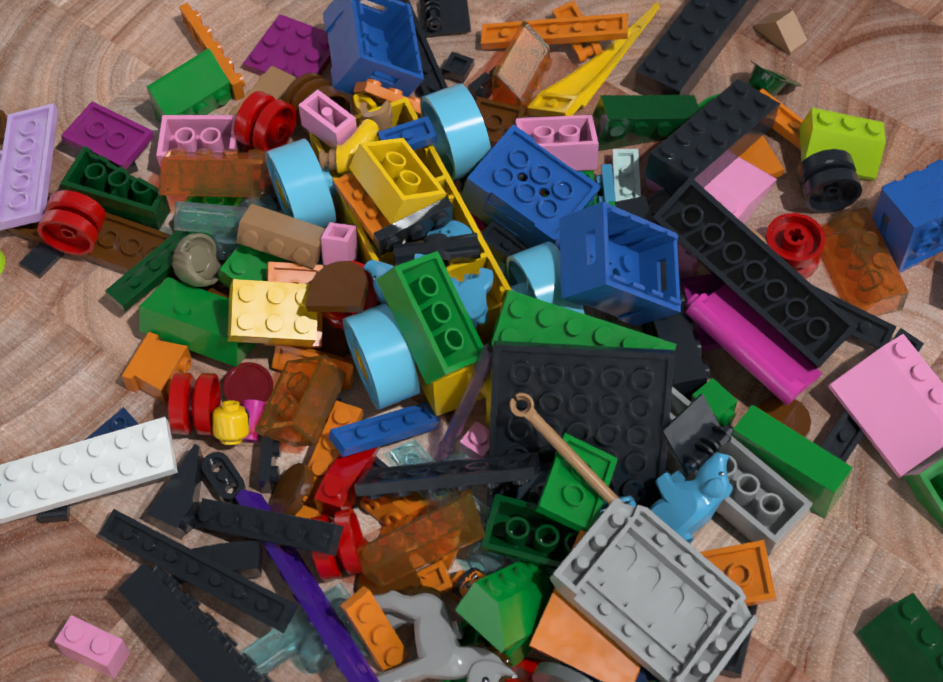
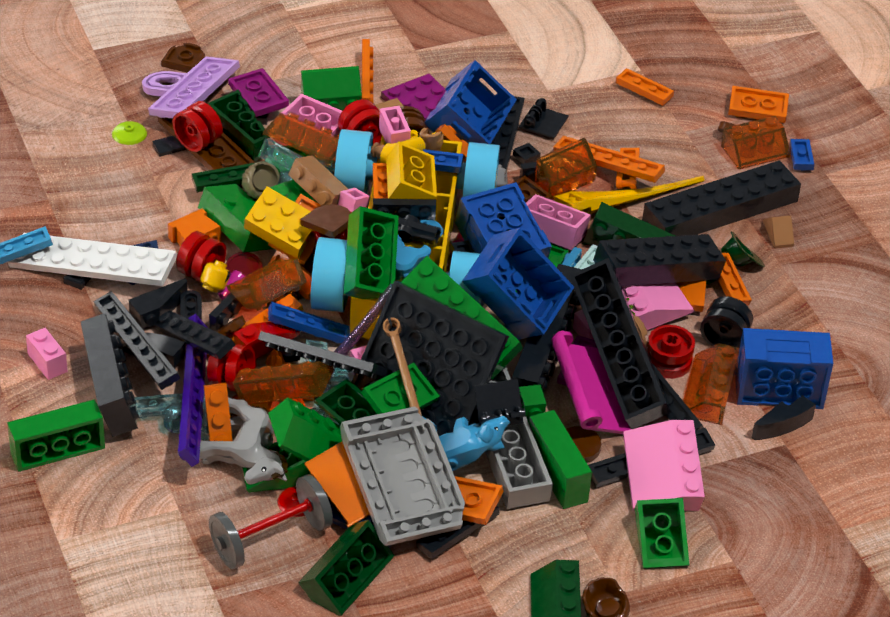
camera: 25 degrees right, 15 degrees down
(854, 134) = (767, 306): lime slope -> none

